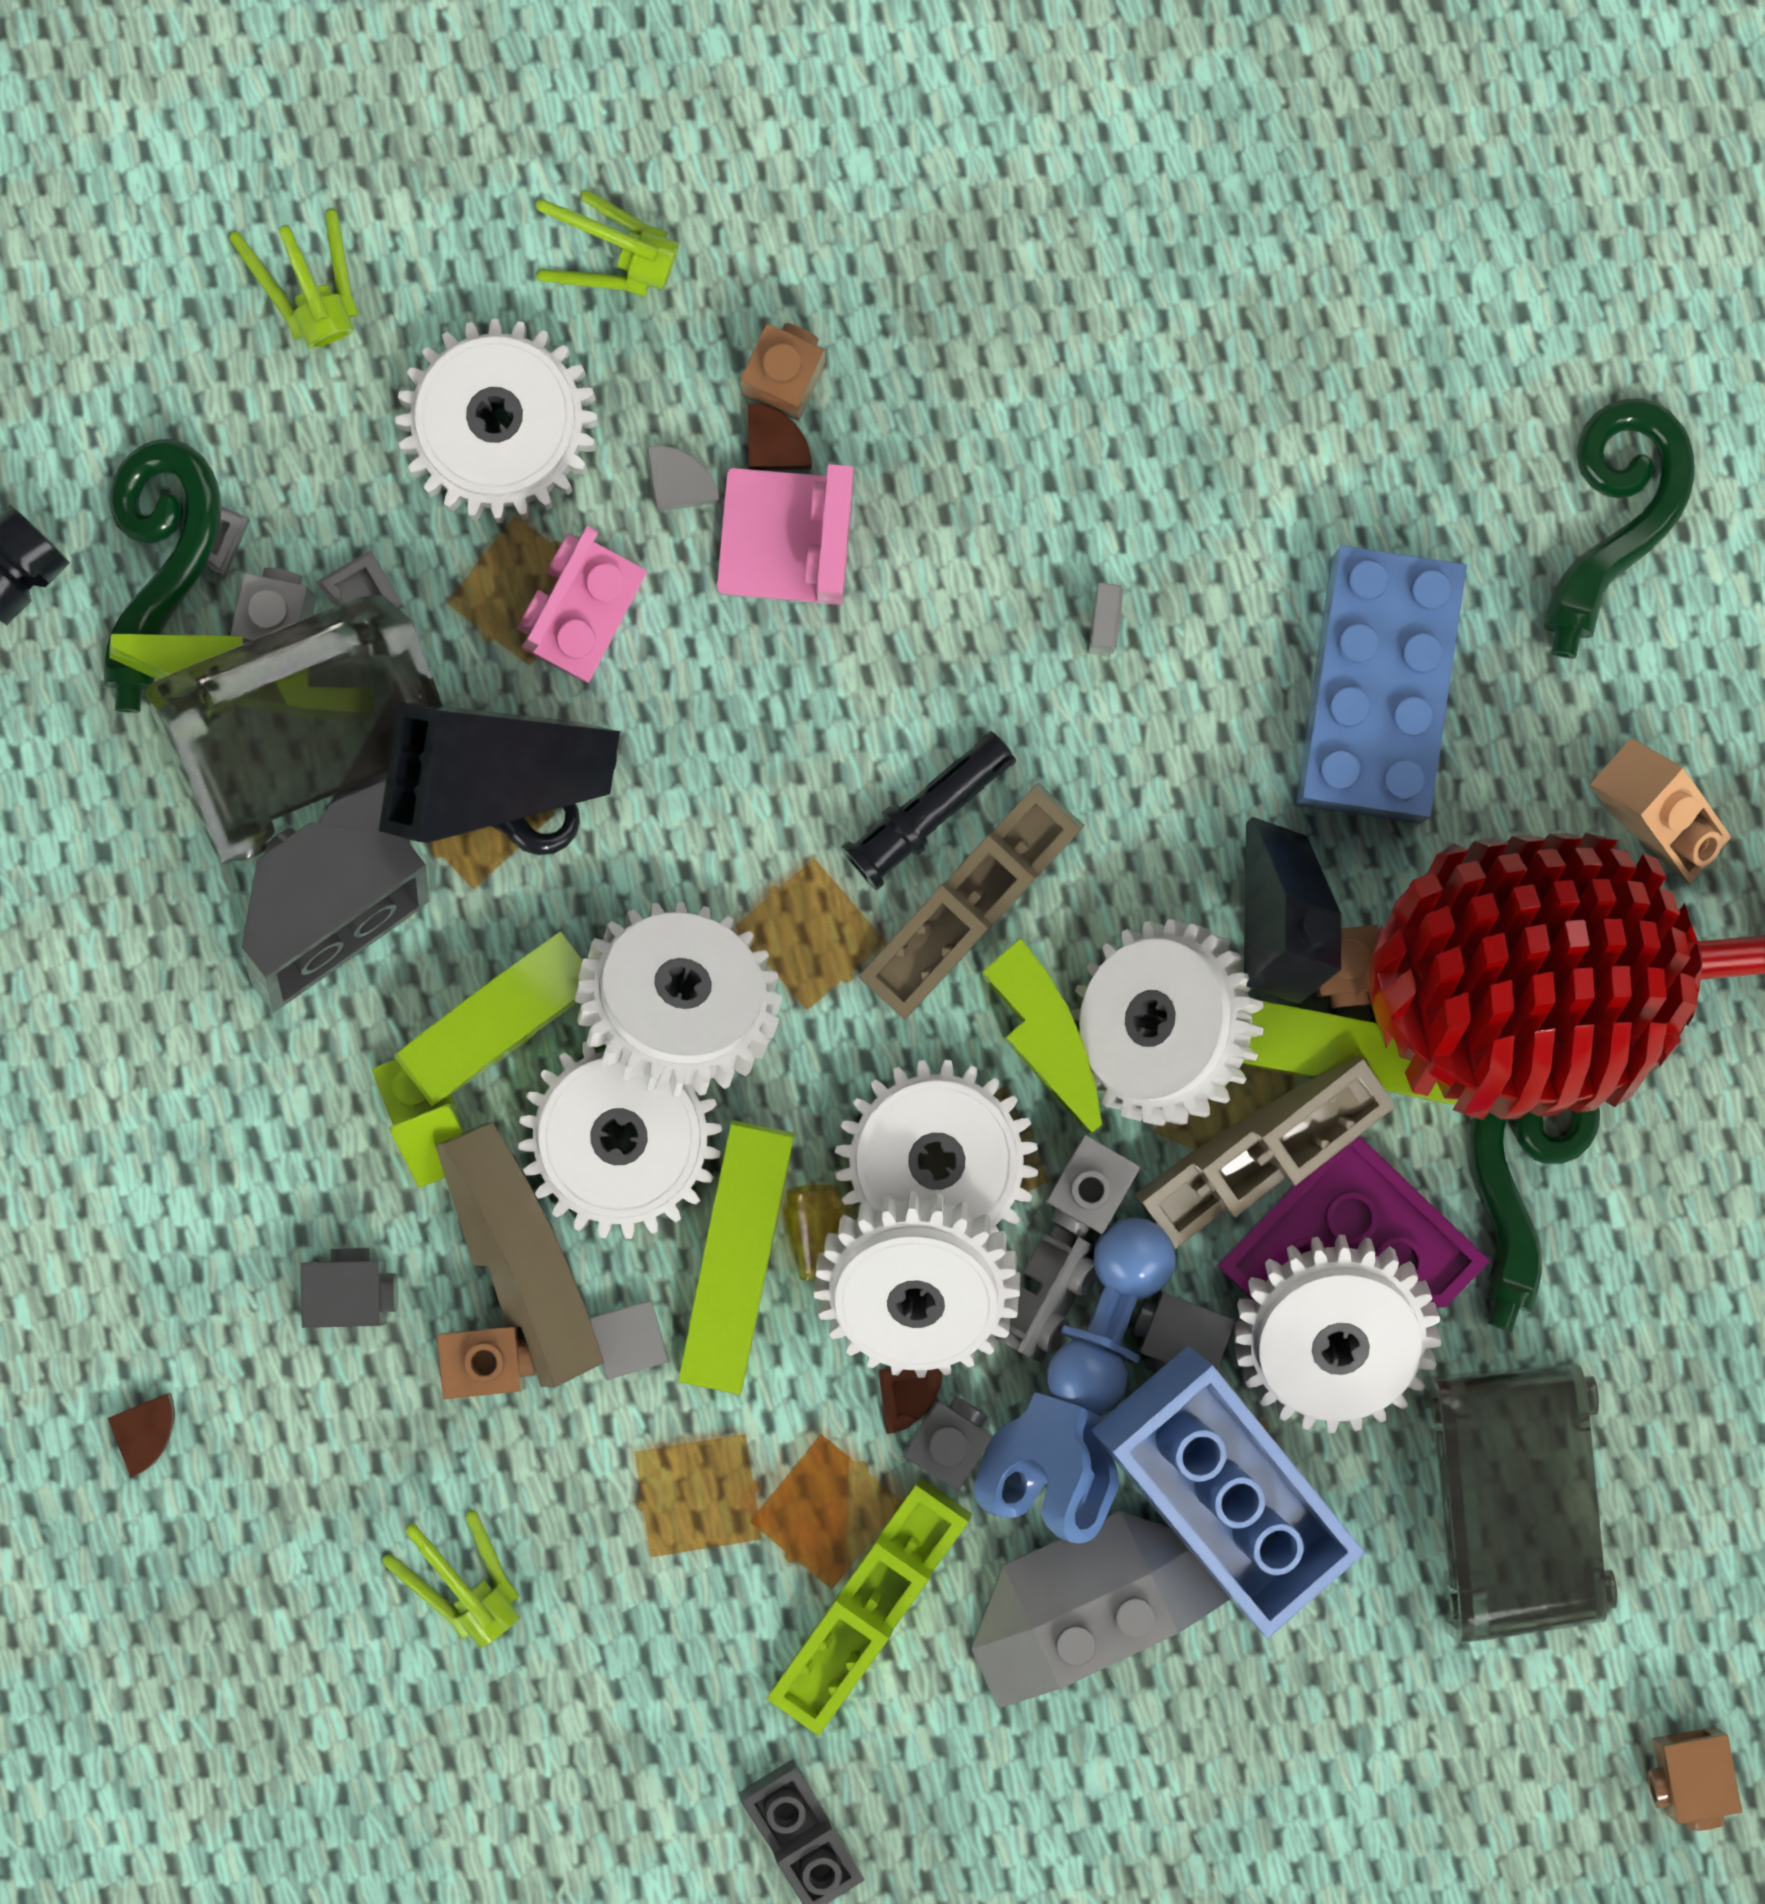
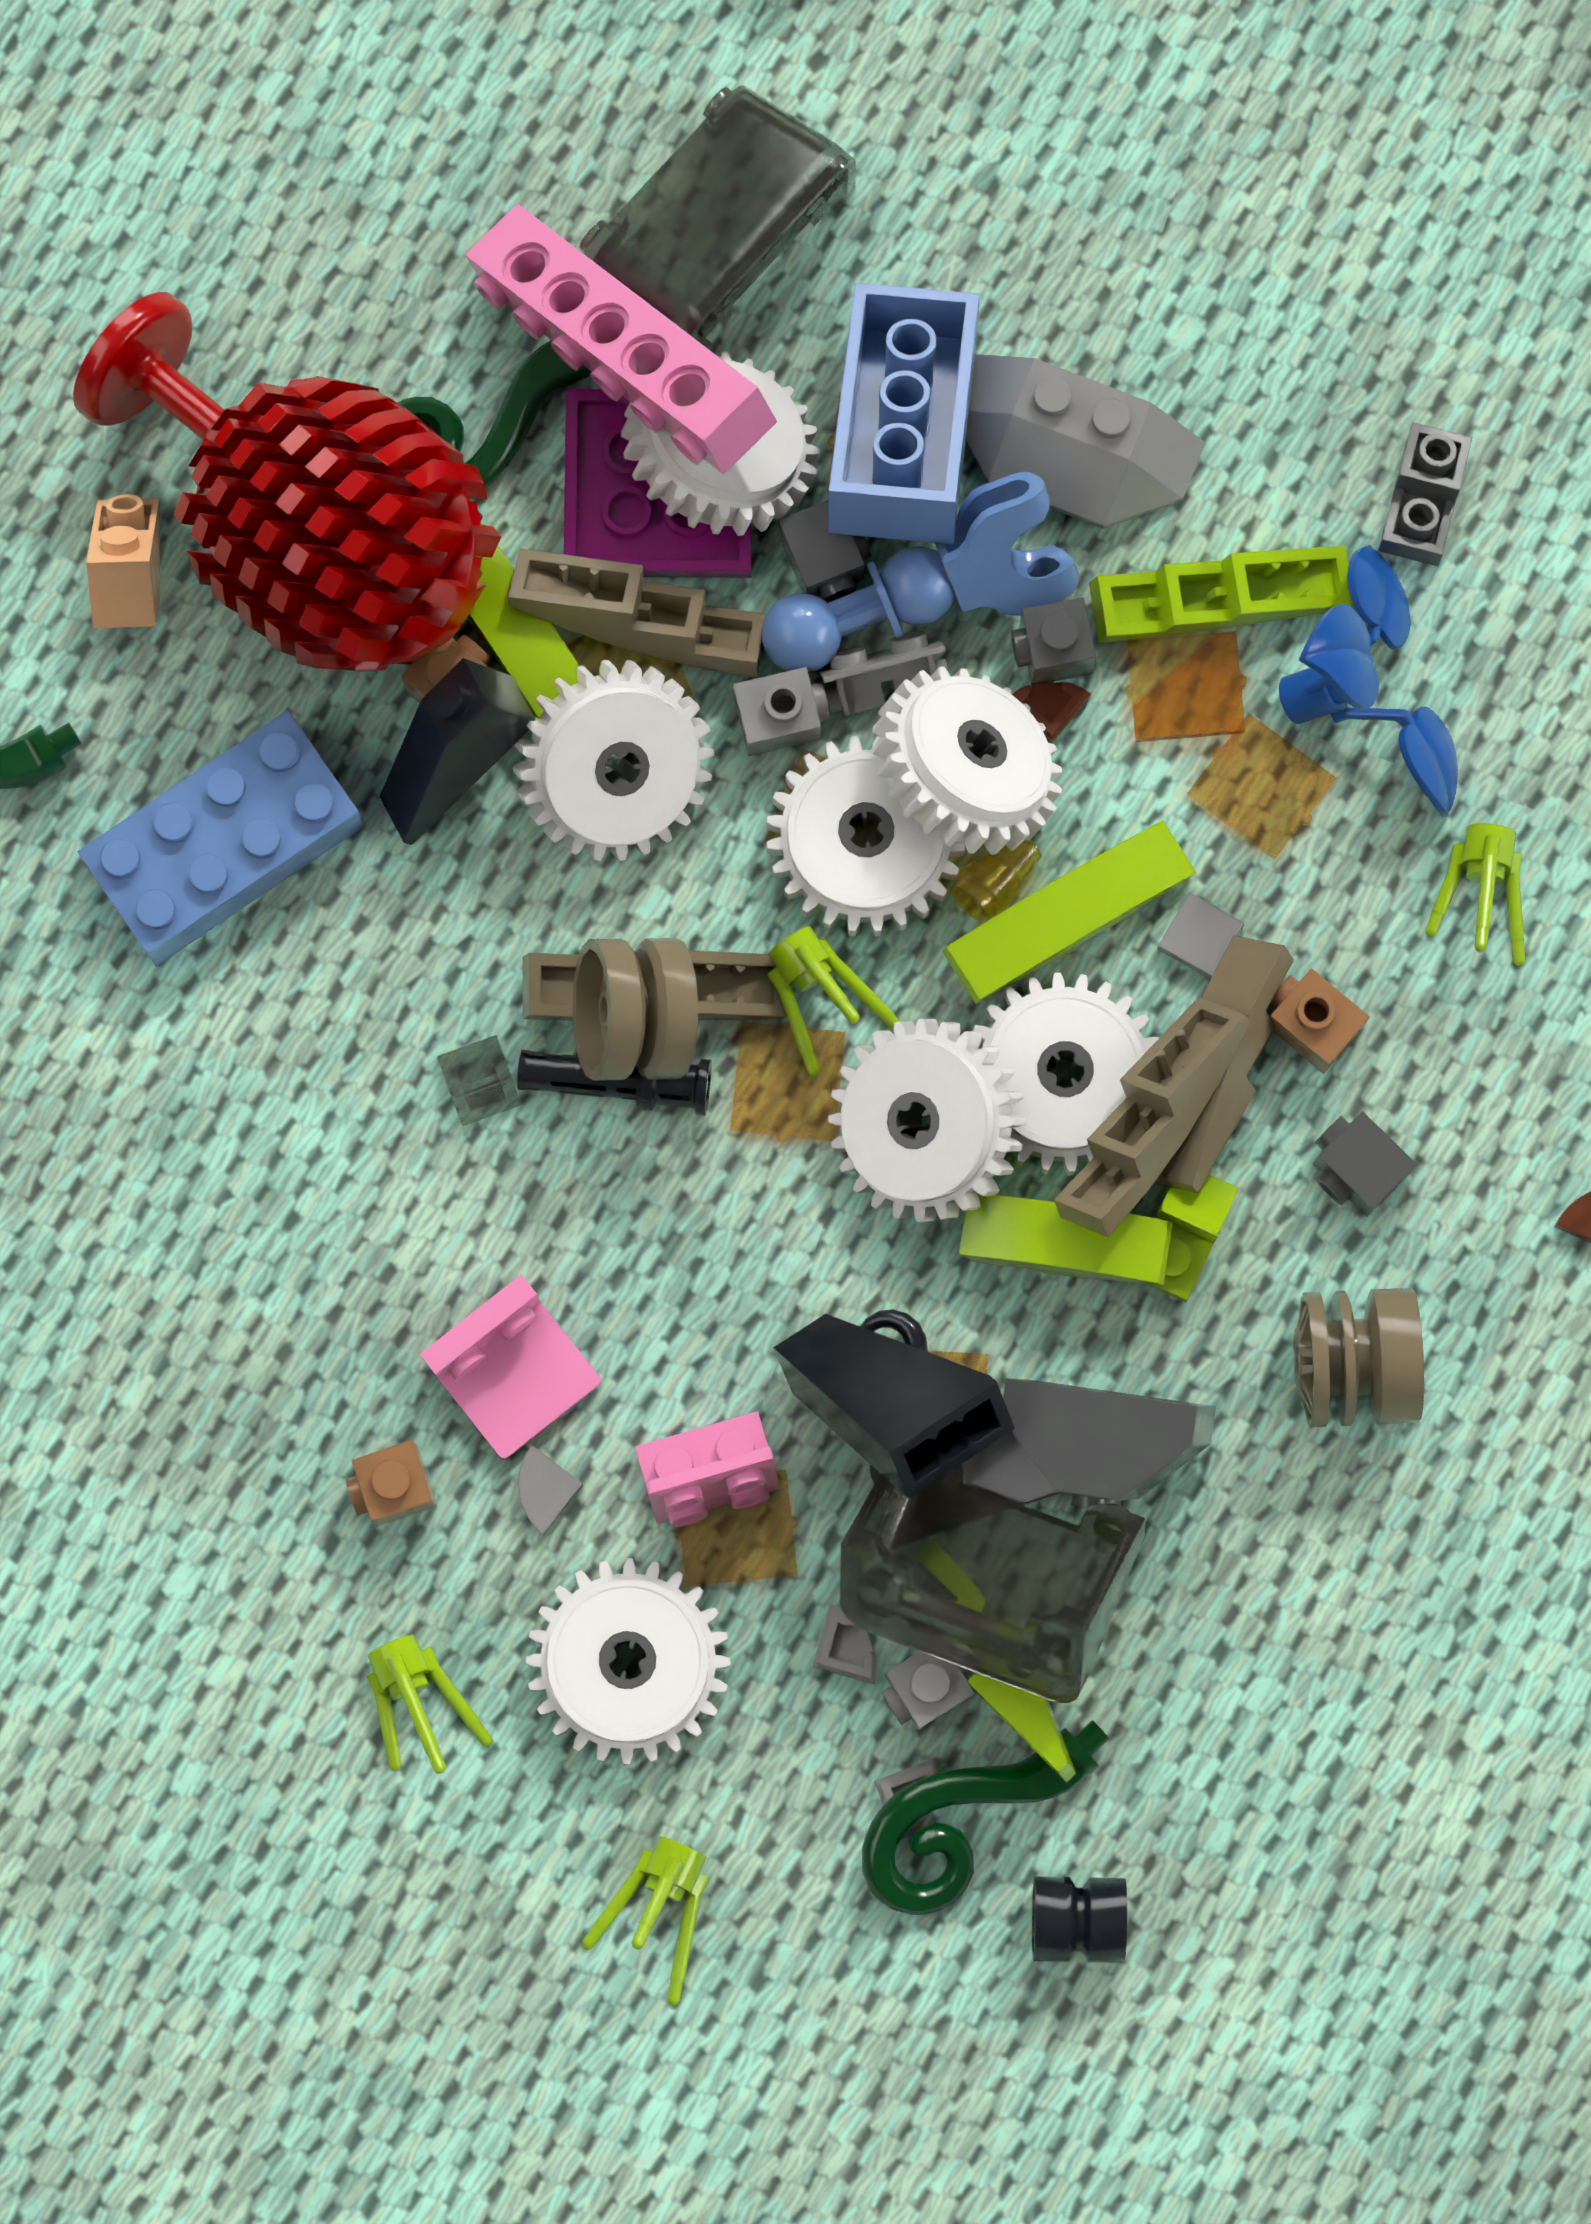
camera: 130 degrees left, 5 degrees down
(202, 1148) = (1360, 1357): none -> dark tan wheel
(516, 1163) = (1161, 1105): none -> dark tan slope
(711, 1627) = (1345, 673): none -> blue plant
(775, 441) = (449, 1446): copper tile -> none
(882, 1023) = (810, 961): none -> lime plant
(957, 854) = (635, 1009): none -> dark tan wheel
(1024, 710) = (479, 1080): none -> clear smoke slope
(1048, 1034) = (699, 845): lime slope -> none
(1105, 619) = (358, 1079): light grey tile -> none
(1341, 1341) = (620, 339): none -> bright pink brick

